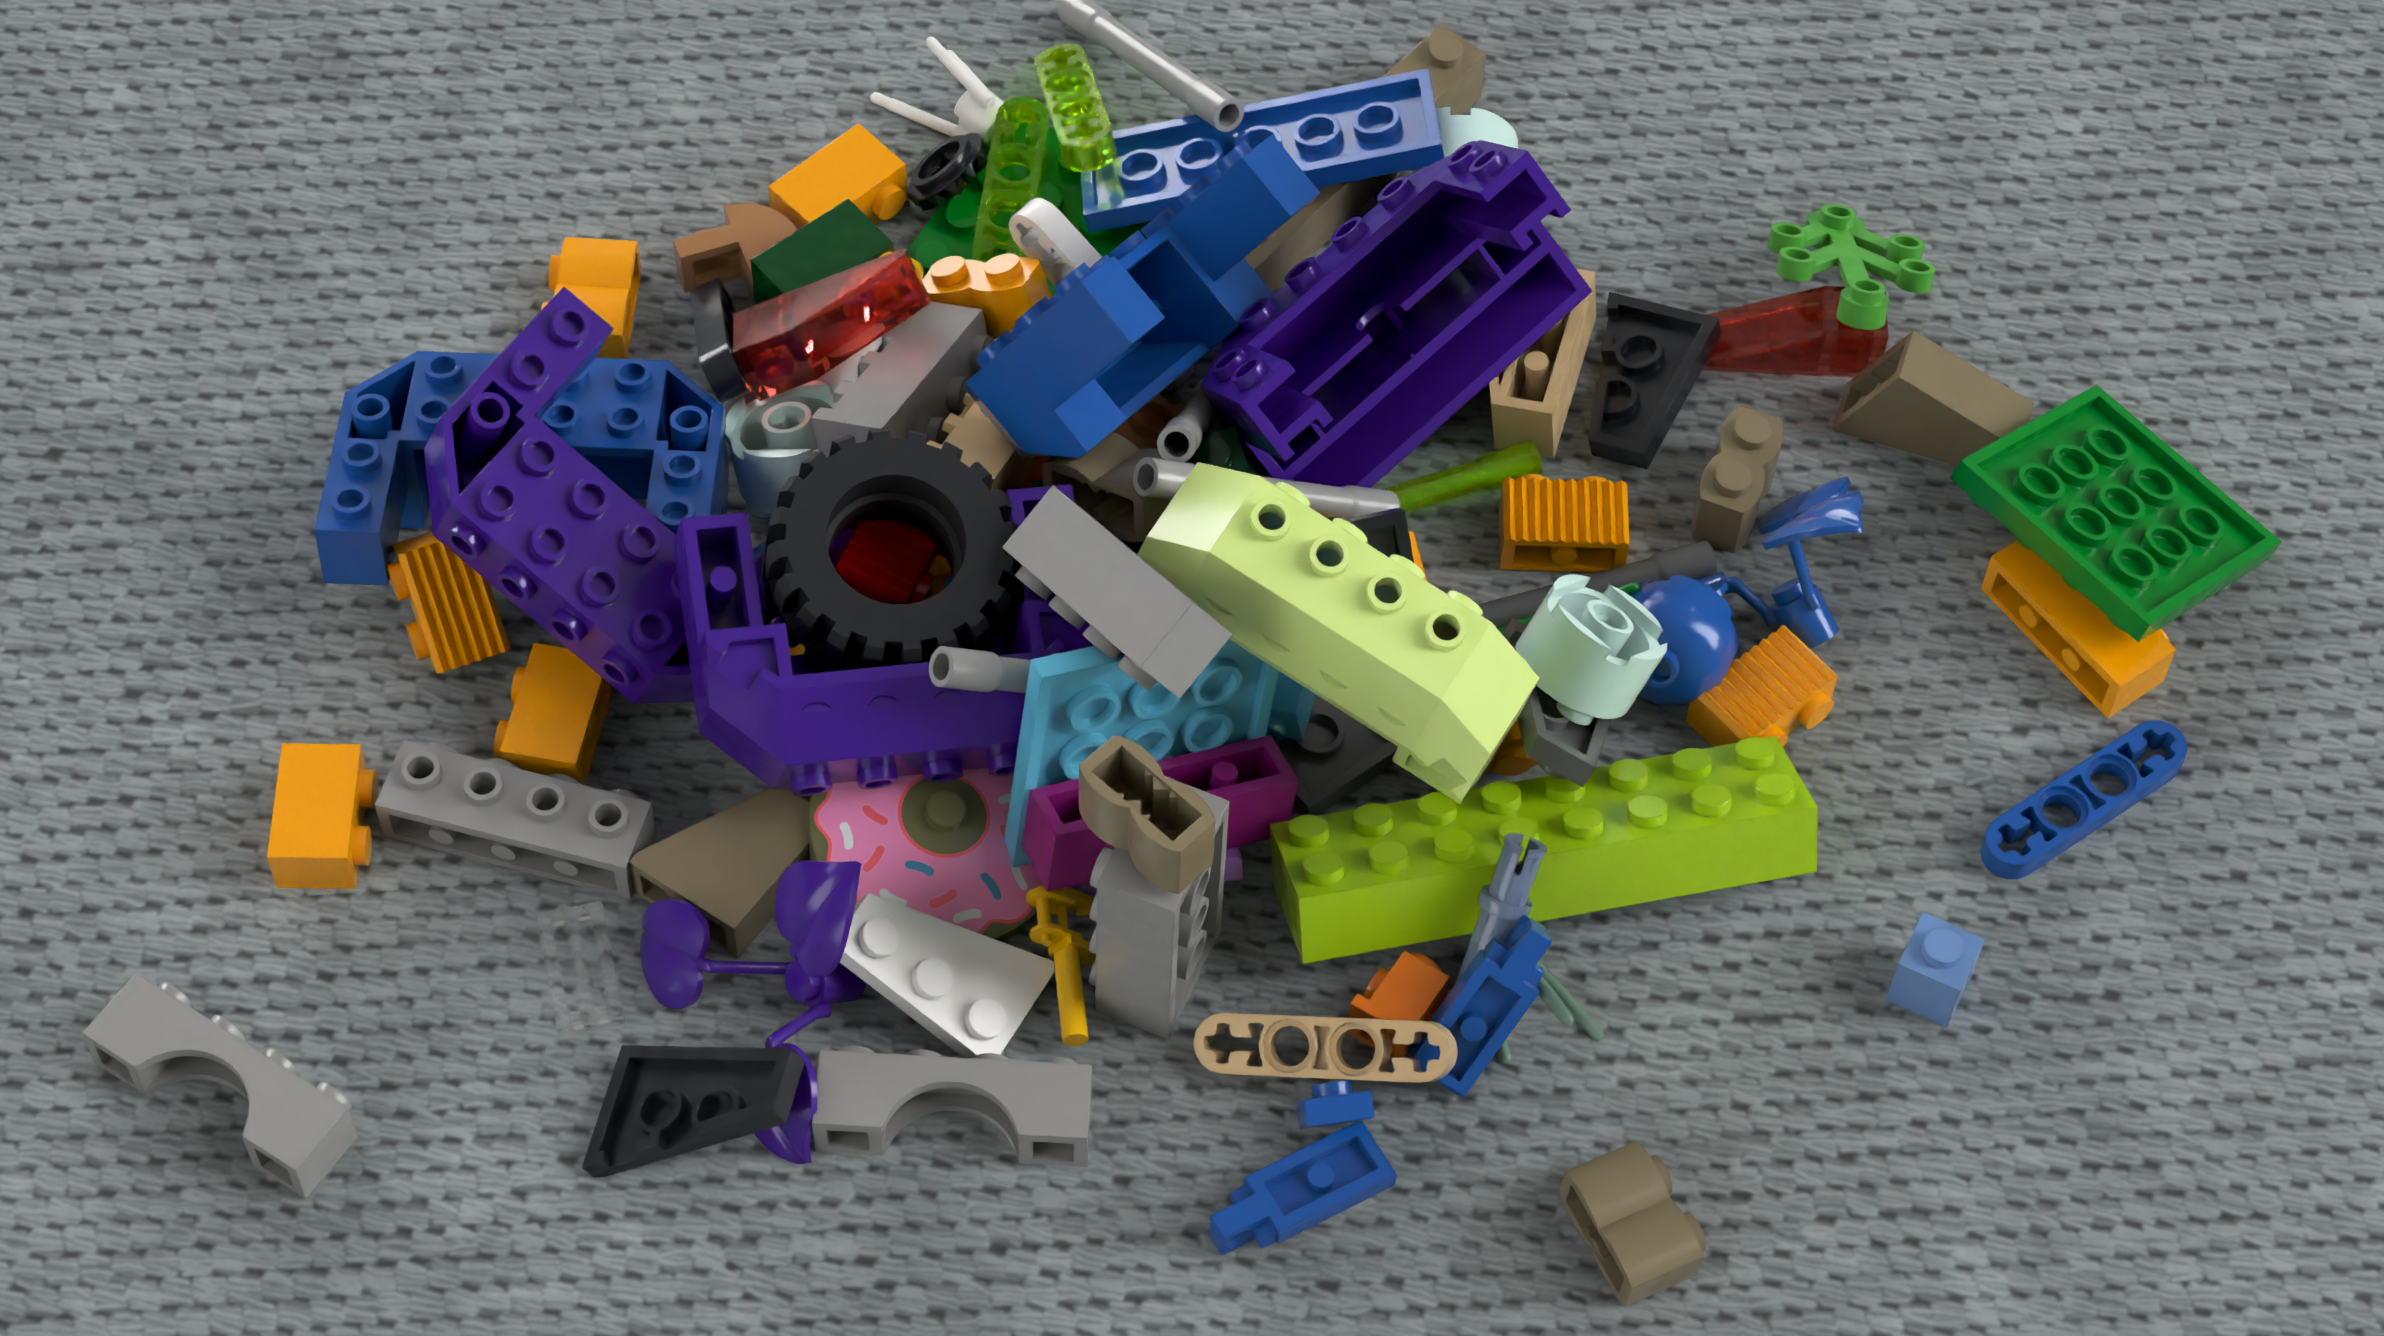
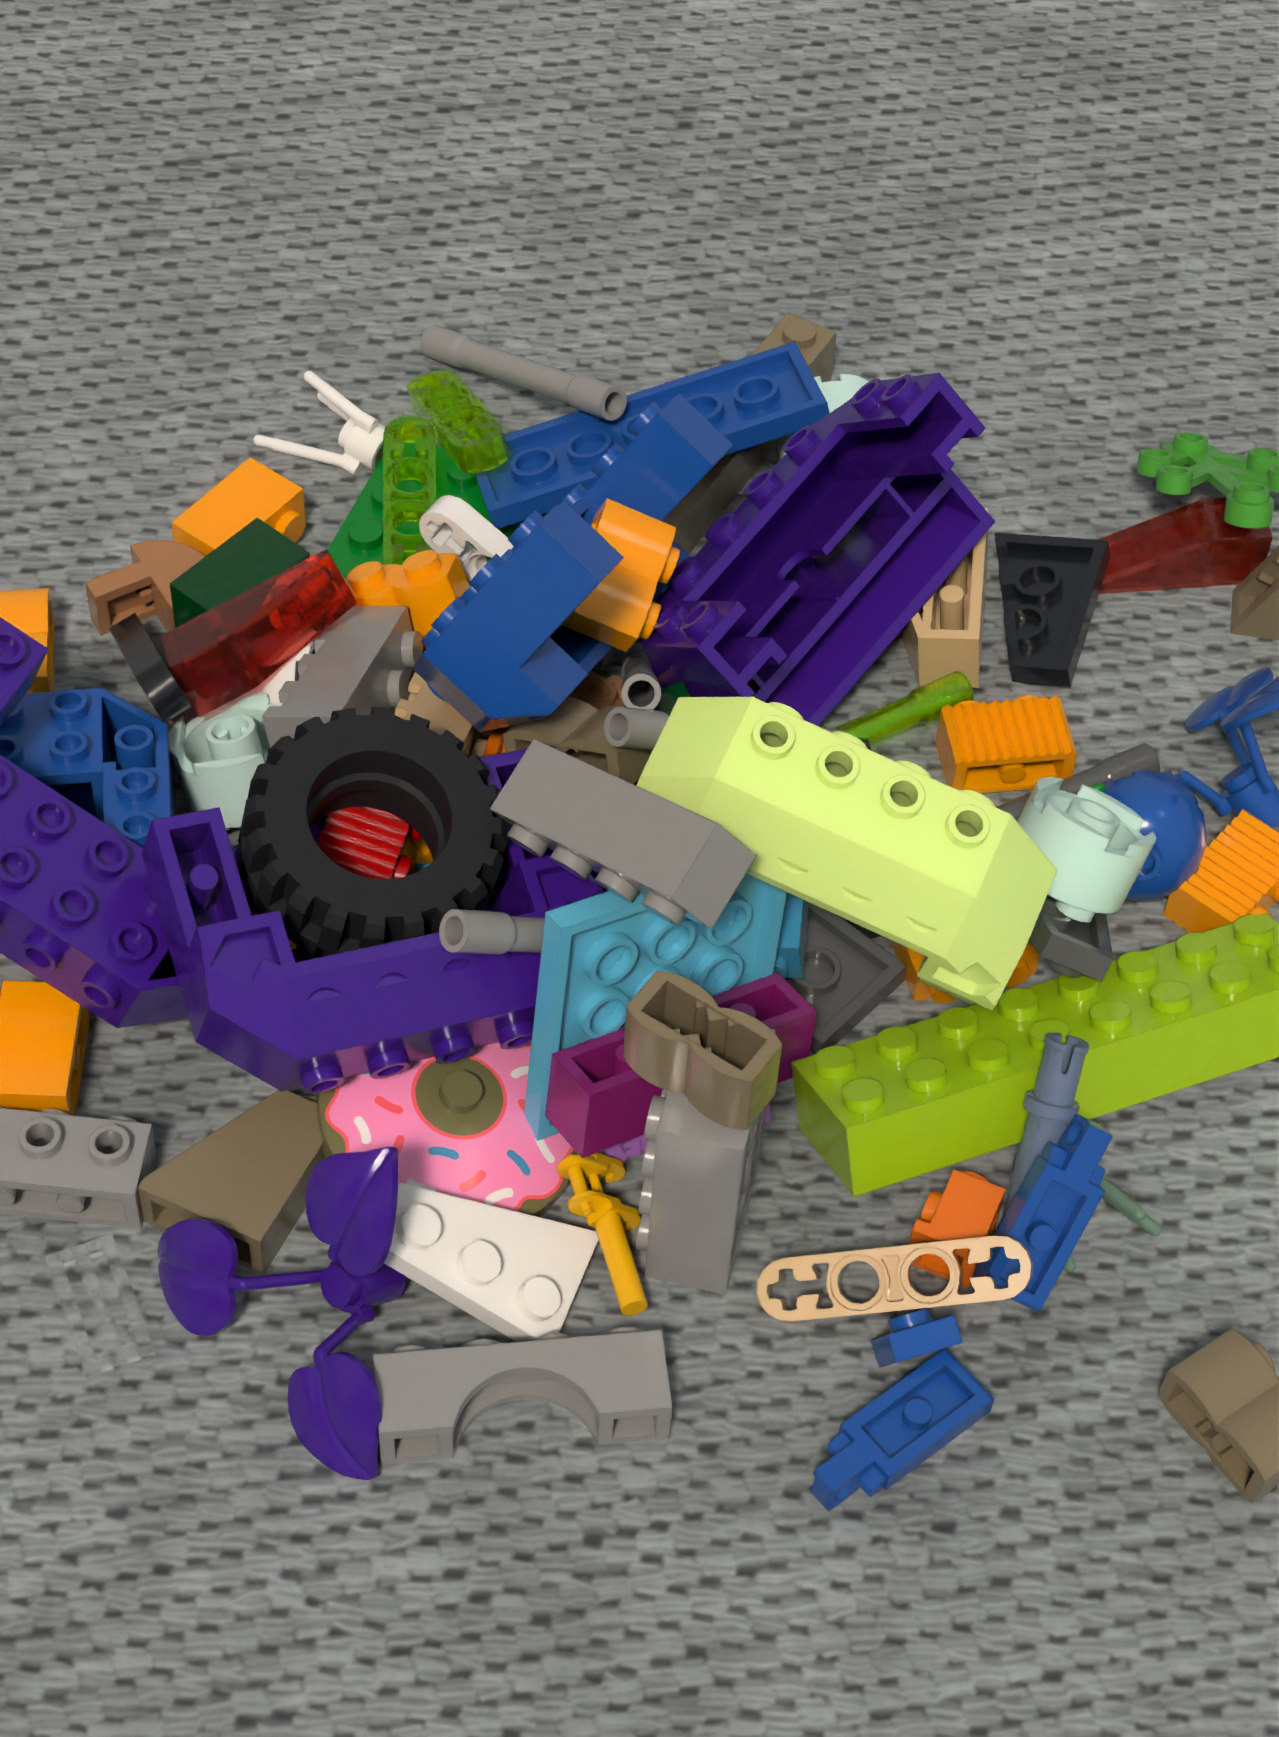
camera: 10 degrees left, 5 degrees down
(686, 1100) = (240, 1427): black wing -> none
(947, 170) = (343, 492): black gear -> none
(1195, 296) = (622, 603): none -> light orange brick
(1737, 478) = (1160, 682): dark tan brick -> none

